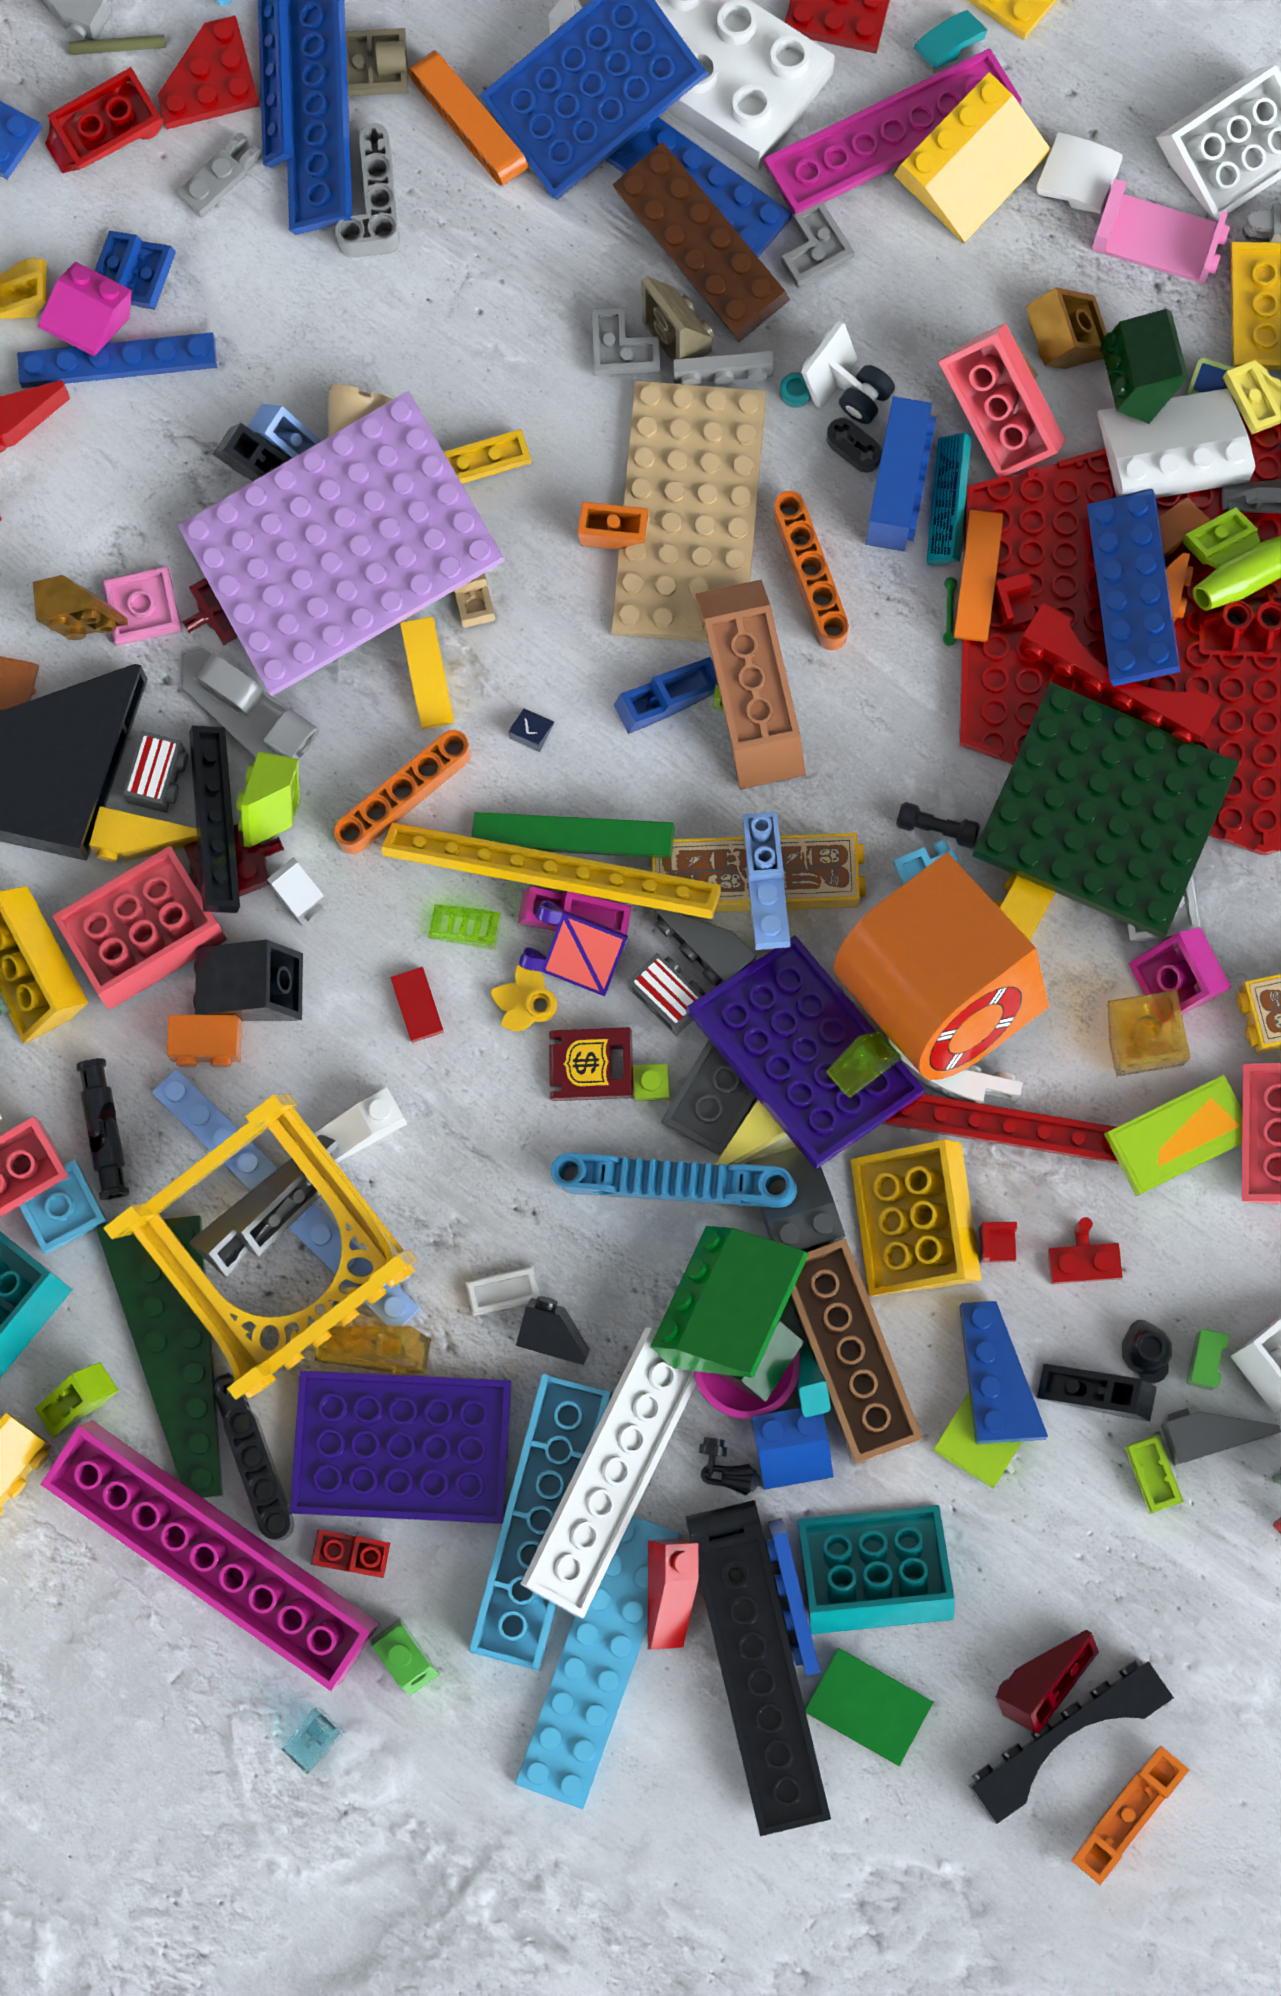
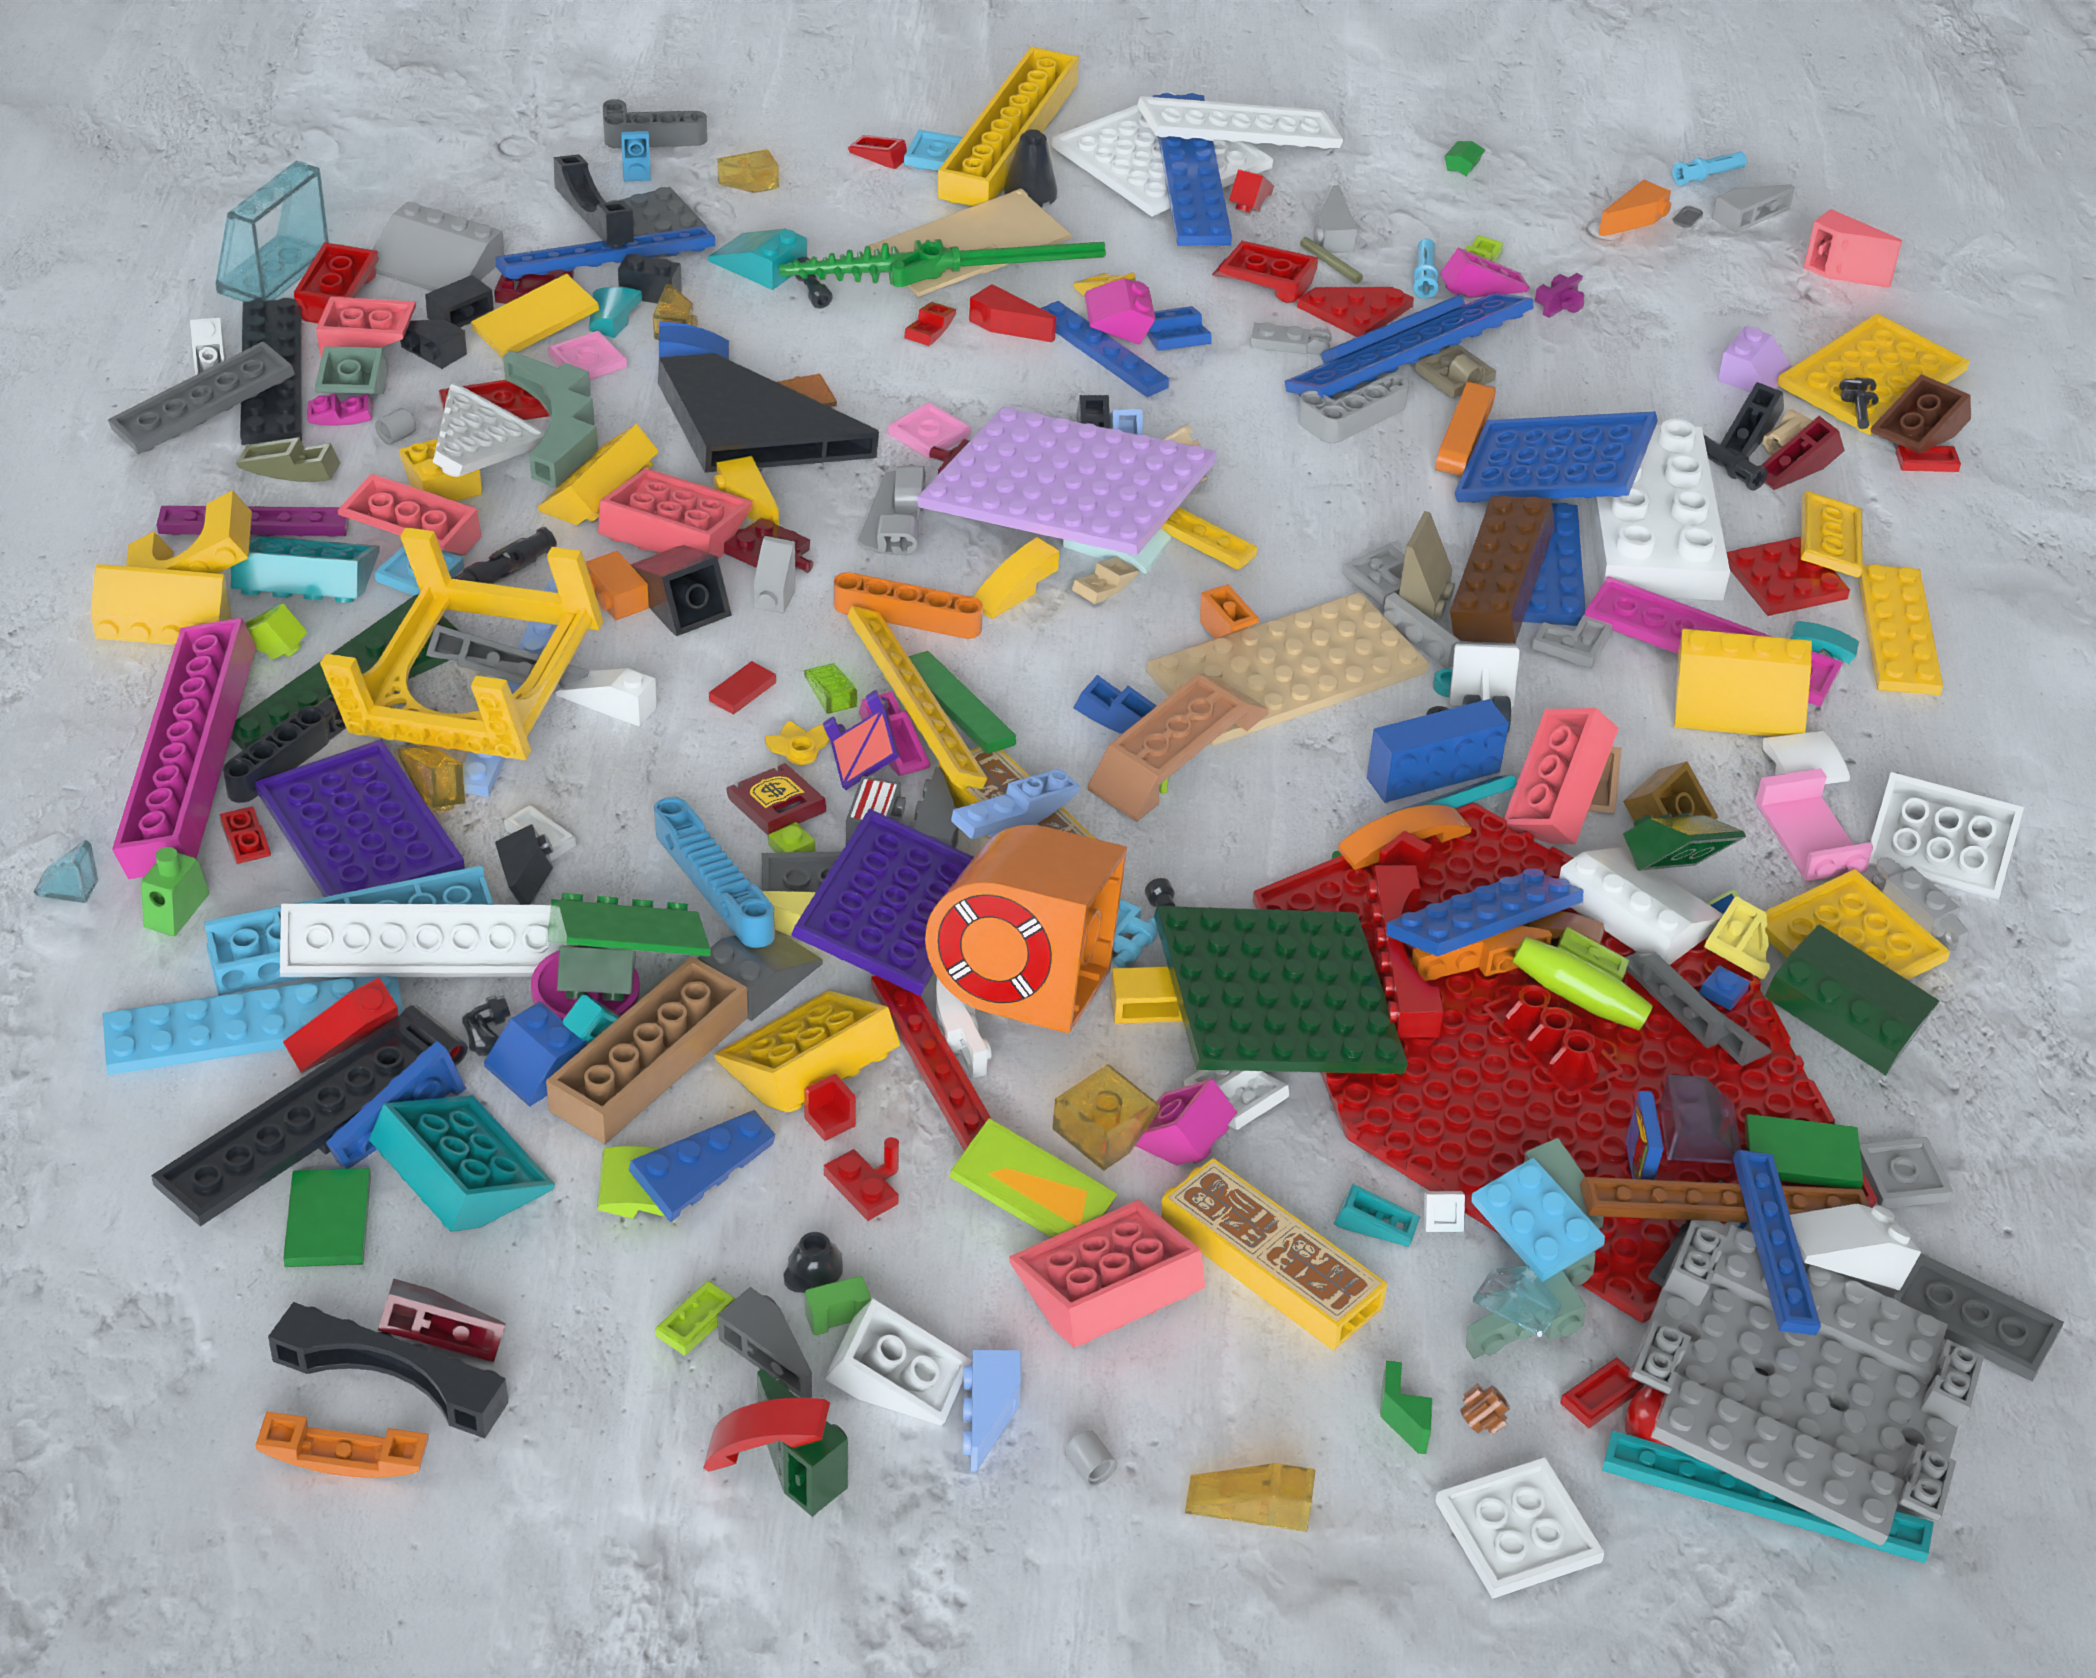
camera: 50 degrees right, 35 degrees down
(73, 609) = (889, 382): pearl gold slope -> none
(155, 772) = (805, 479): brick -> none
(214, 819) = (792, 511): black plate -> none
(269, 799) = (832, 526): lime slope -> none
(530, 729) = (1024, 654): dark blue slope -> none
(810, 555) = (1308, 746): orange beam -> none
(863, 1062) = (906, 925): clear neon green slope -> none
(1097, 1391) = (746, 1242): black slope -> none

